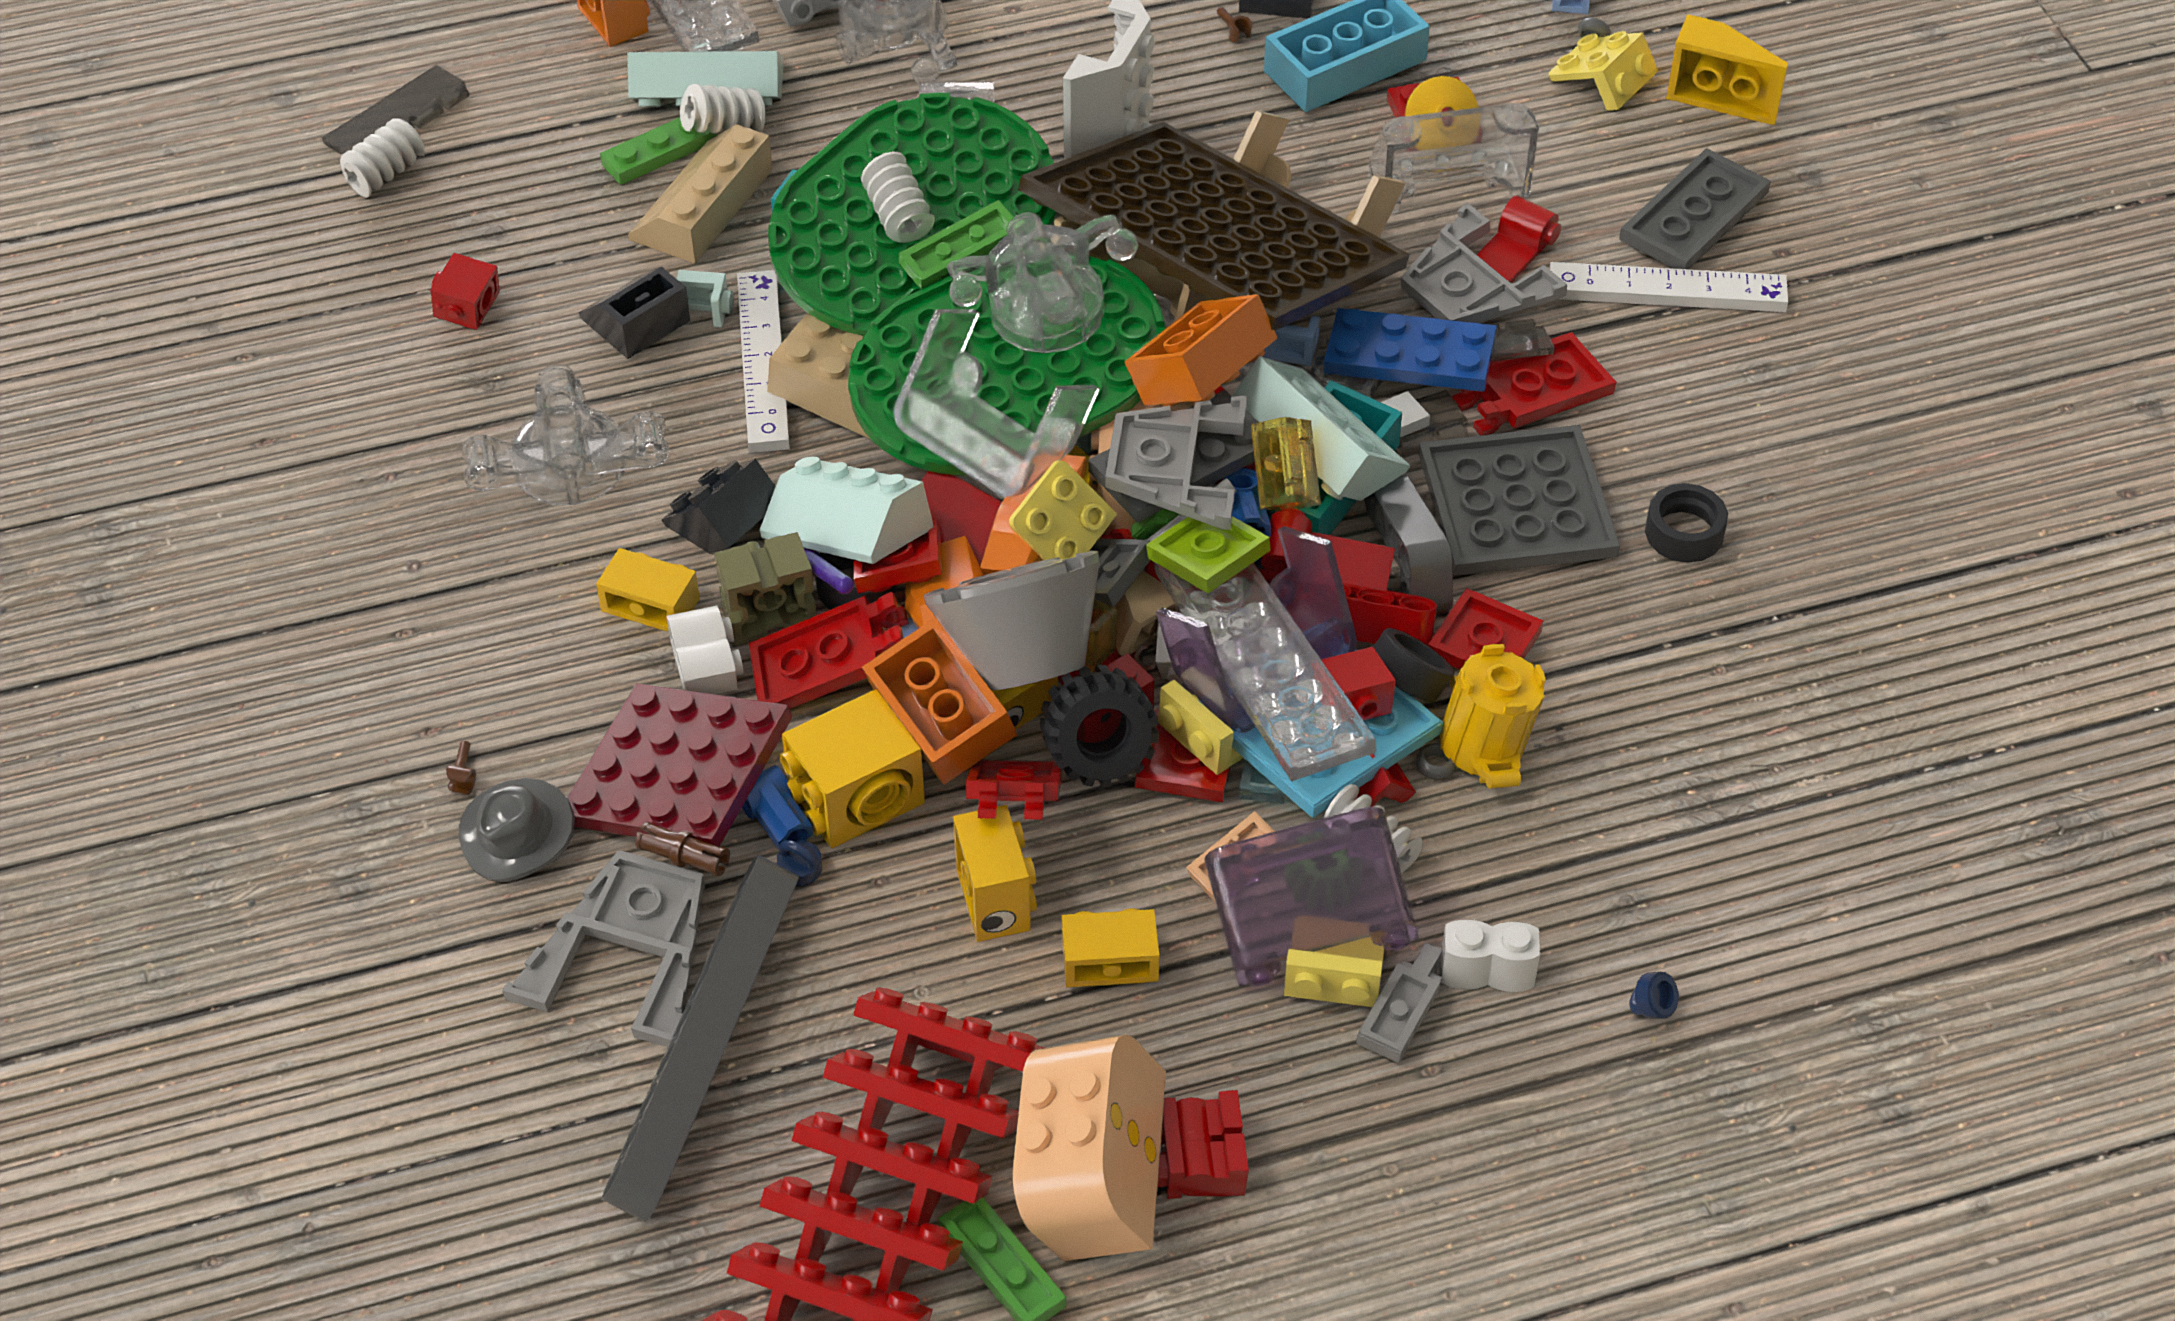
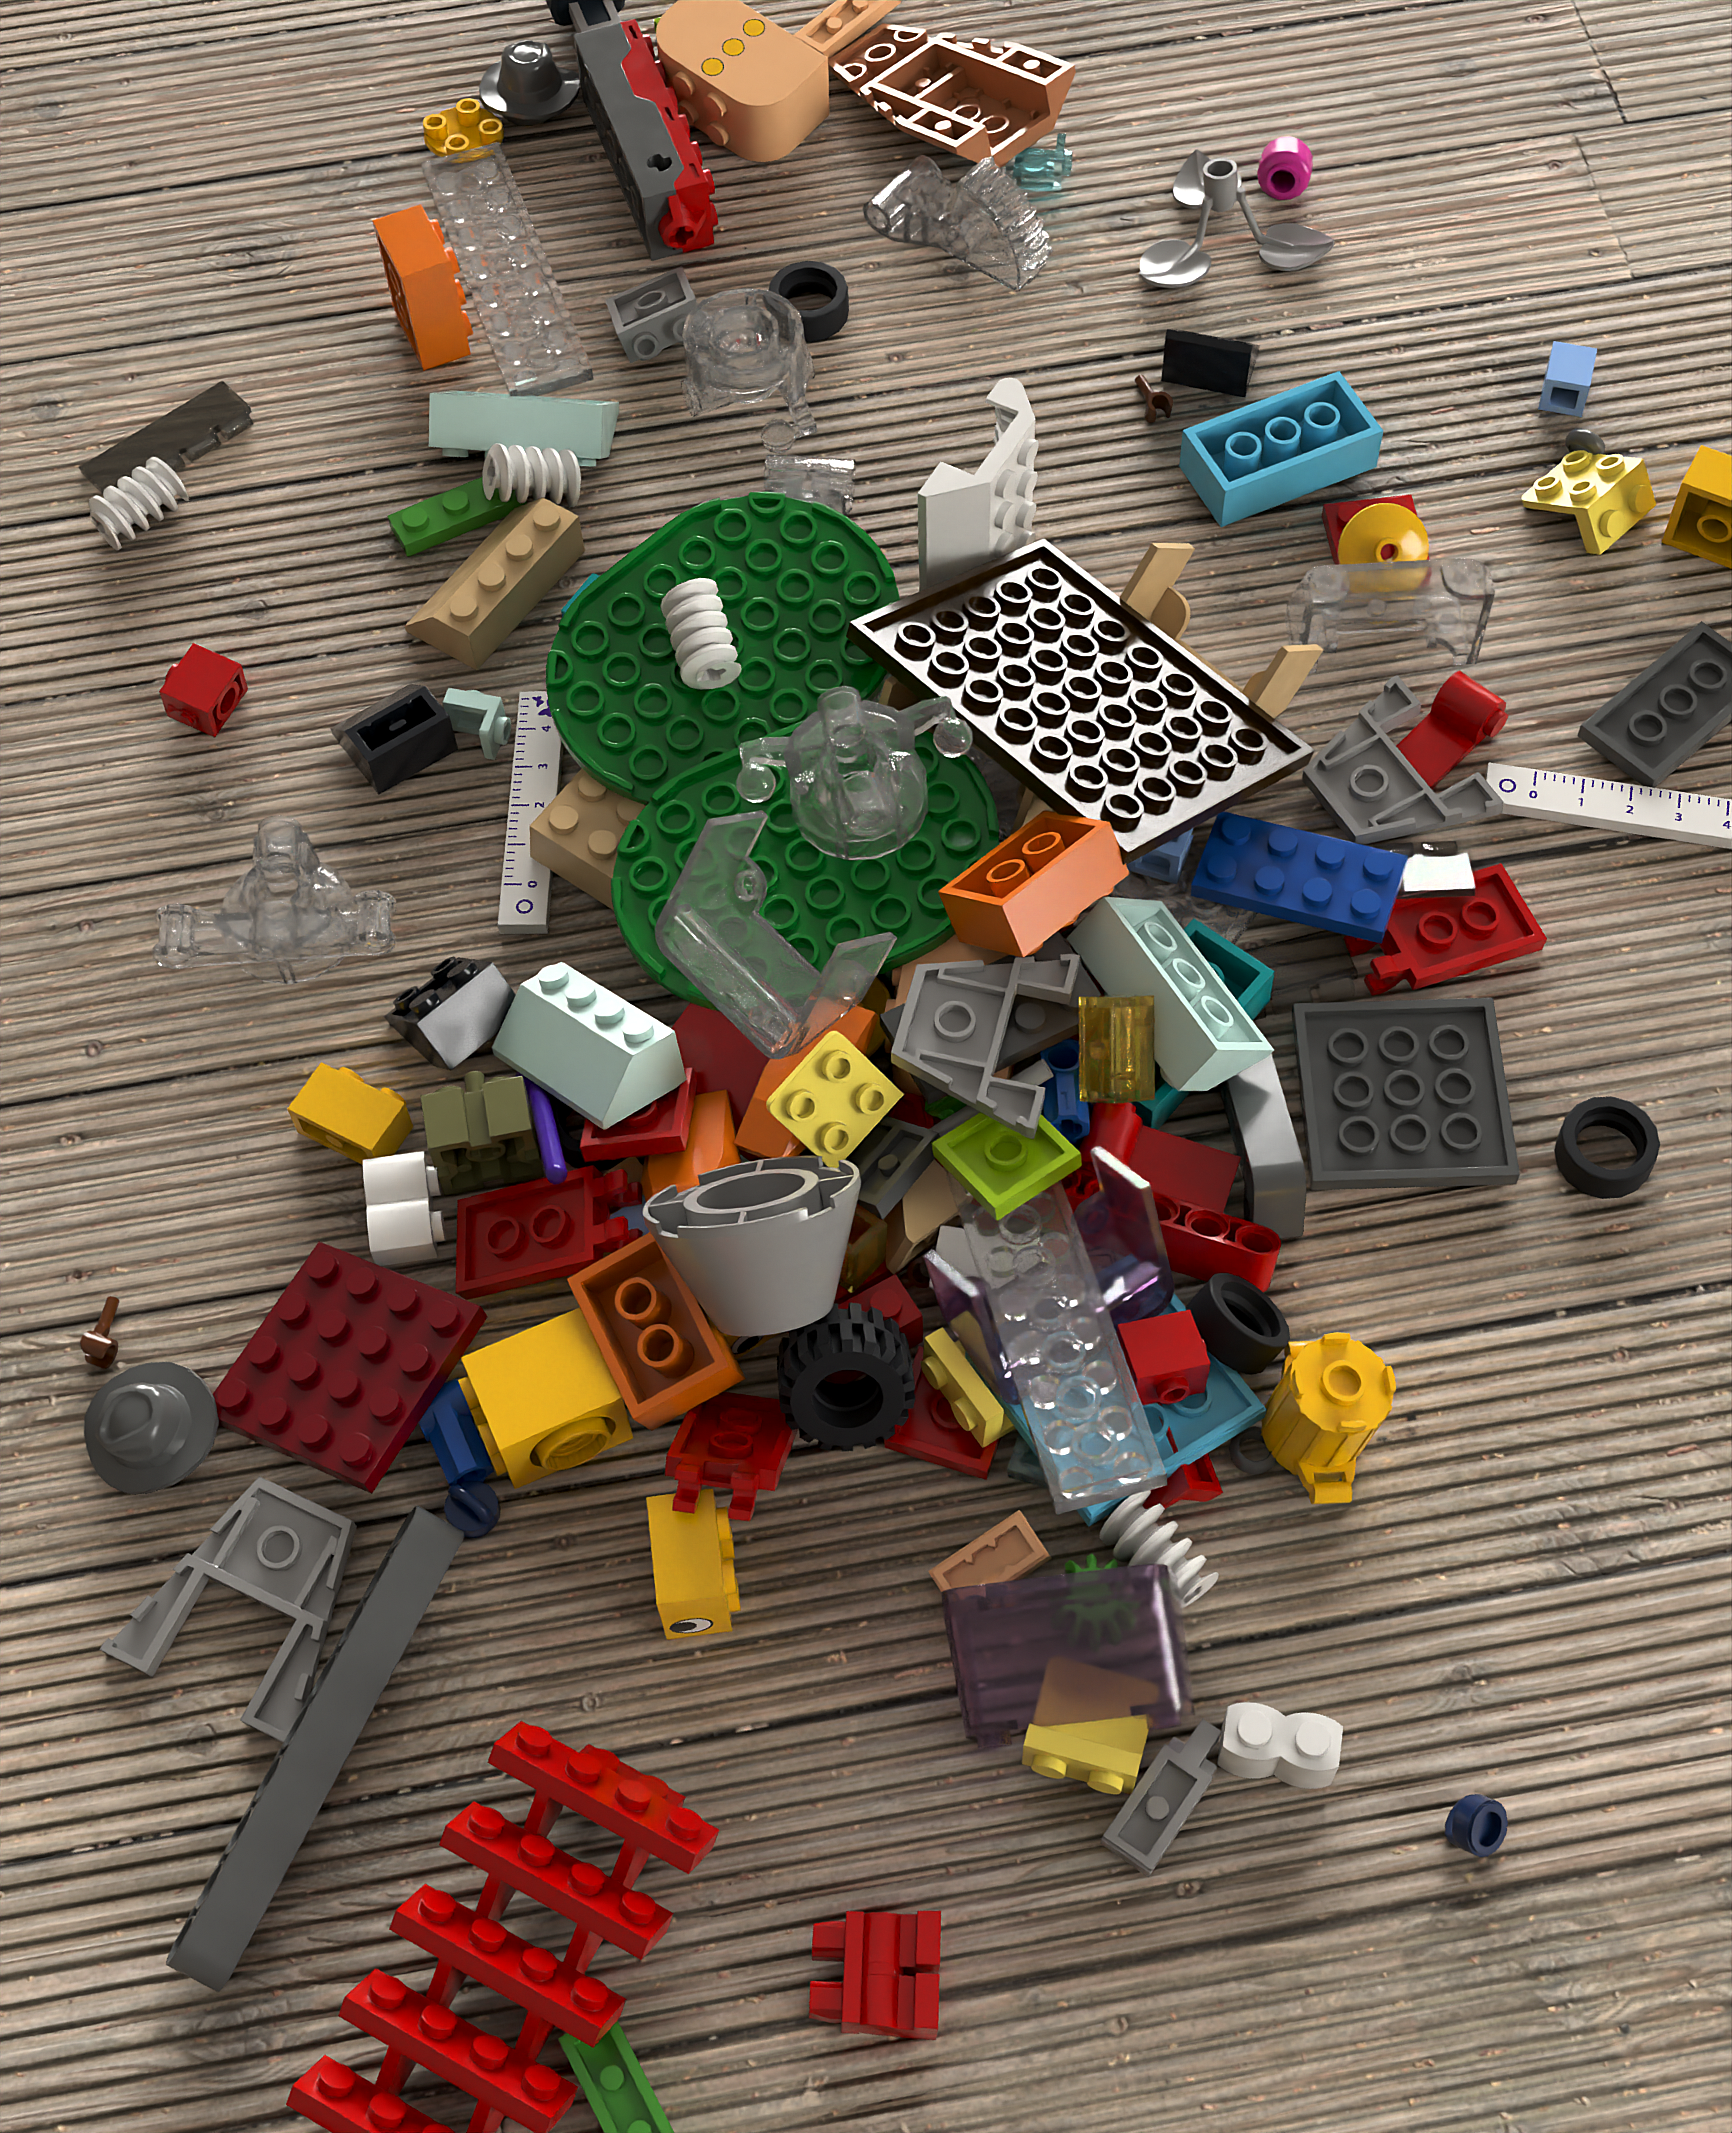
camera: 10 degrees right, 10 degrees up
(682, 848) = (331, 1488): reddish brown pin -> none
(971, 236) = (766, 701): bright green plate -> none
(1090, 1147) = (745, 1980): light nougat brick -> none
(1110, 947) = (817, 1679): yellow brick -> none
(1413, 414) = (1281, 955): white tile -> none
(1483, 622) = (1336, 1282): red plate -> none

